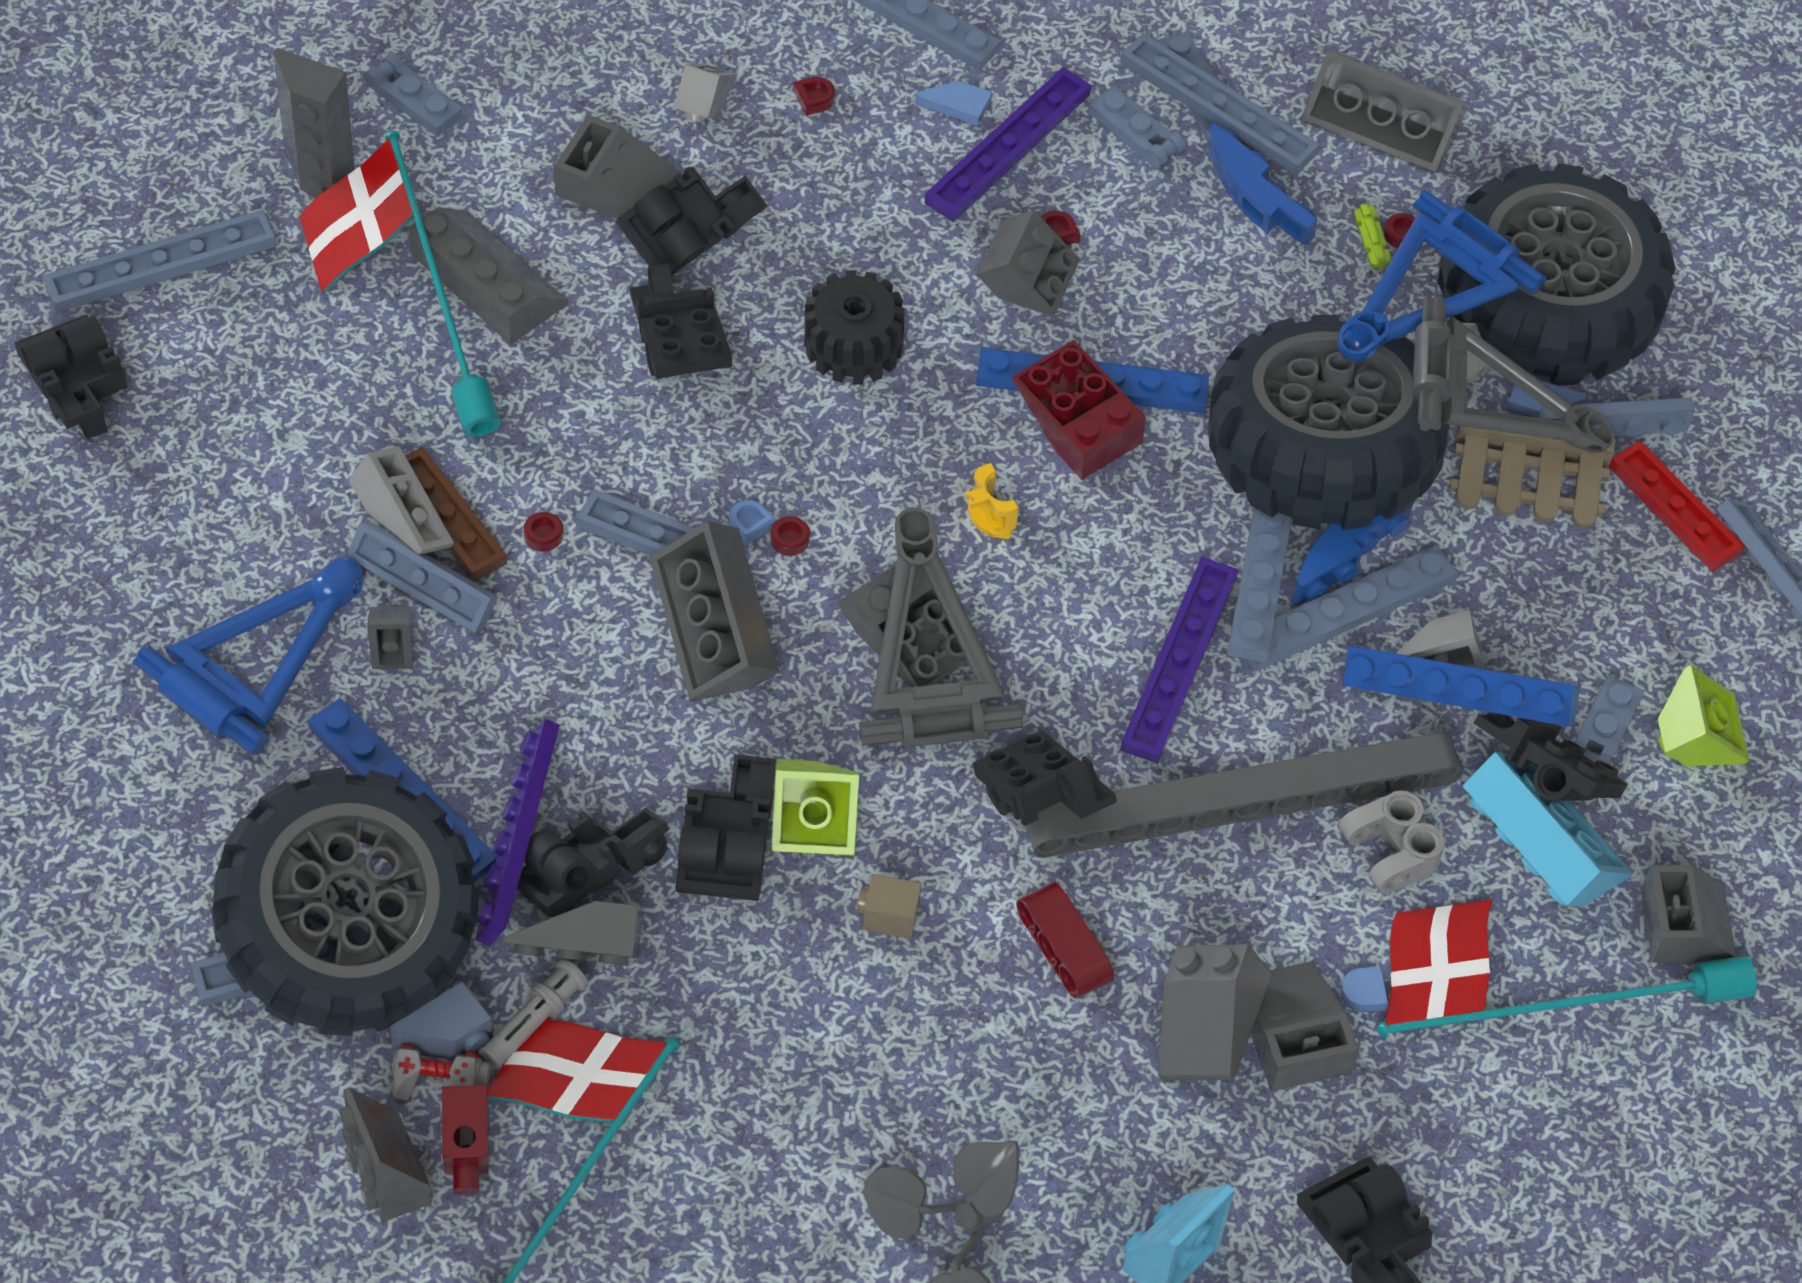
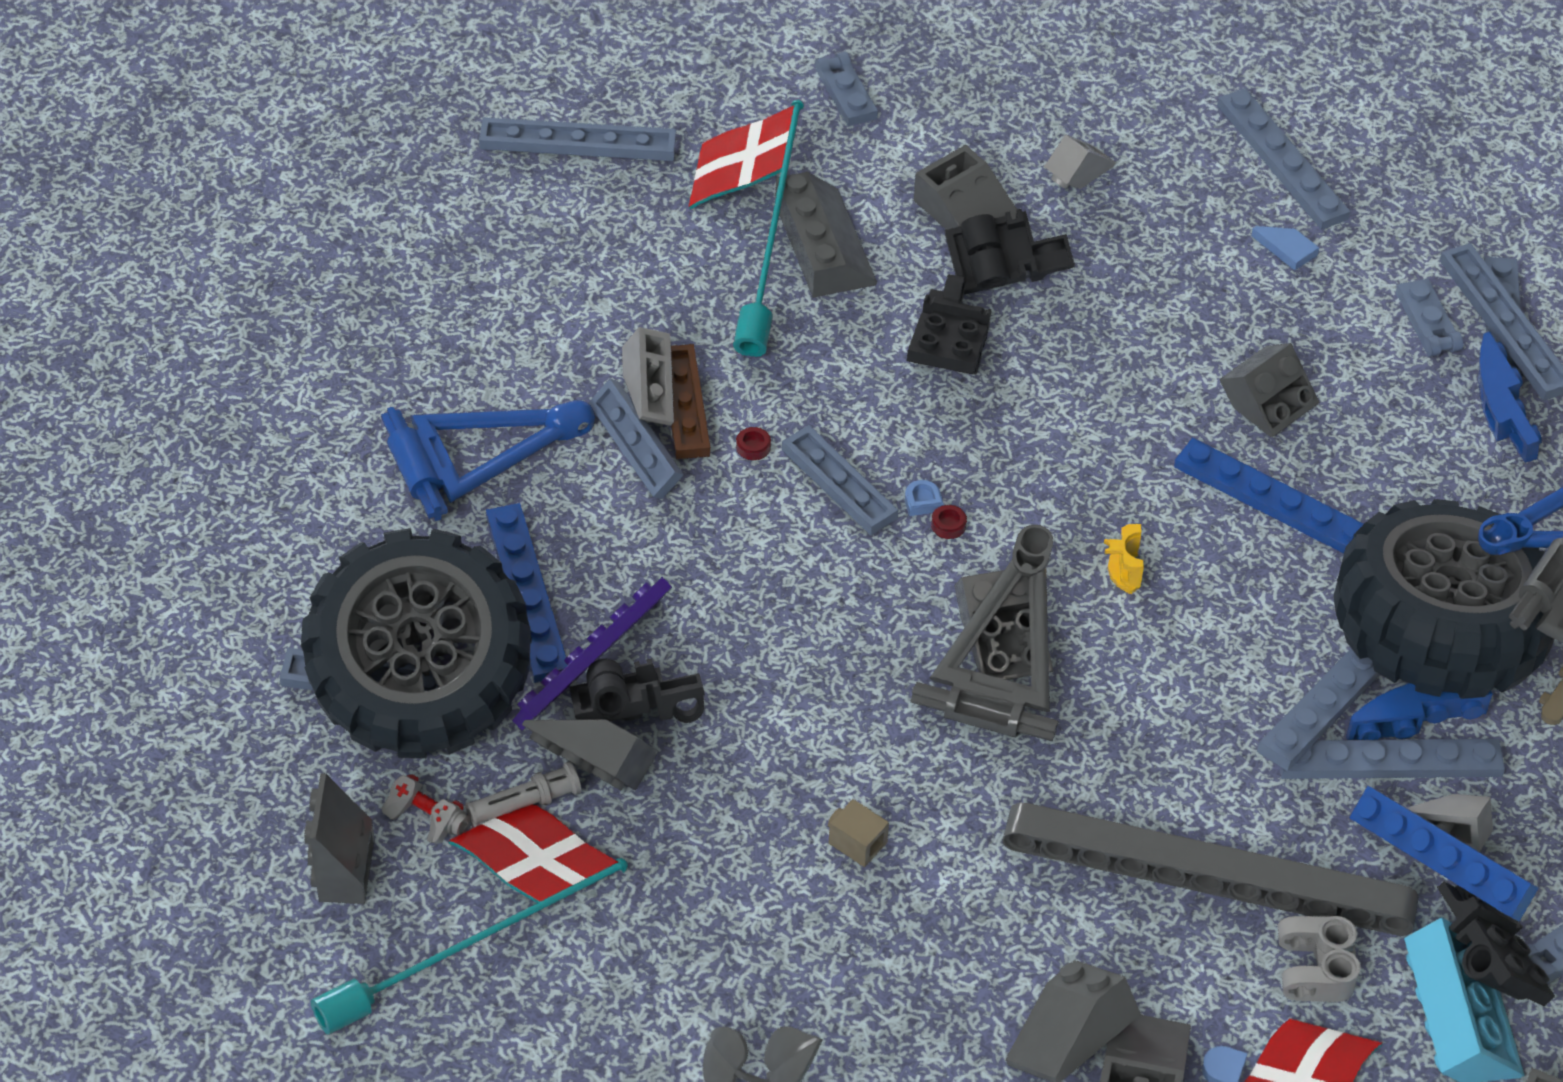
camera: 30 degrees right, 5 degrees down
(74, 371) = (463, 192): black plate -> none
(314, 121) = (743, 70): dark grey slope -> none
(391, 637) = (583, 471): dark grey slope -> none
(446, 1025) = (450, 773): sand blue slope -> none
(465, 1124) = (414, 859): dark red torso -> none
(714, 612) = (847, 551): dark grey slope -> none
(727, 834) = (757, 722): black plate -> none
(814, 94) = (1170, 199): dark red tile -> none
(814, 808) = (838, 731): lime slope -> none
(854, 326) = (1091, 381): black wheel -> none
(1007, 144) = (1309, 291): dark purple plate -> none
(1039, 775) = (1037, 778): black plate -> none
(1063, 226) = (1317, 371): dark red tile -> none
(1065, 940) = (987, 919): dark red beam -> none
(1080, 409) = (1245, 514): dark red slope -> none
(1179, 660) = (1216, 741): dark purple plate -> none

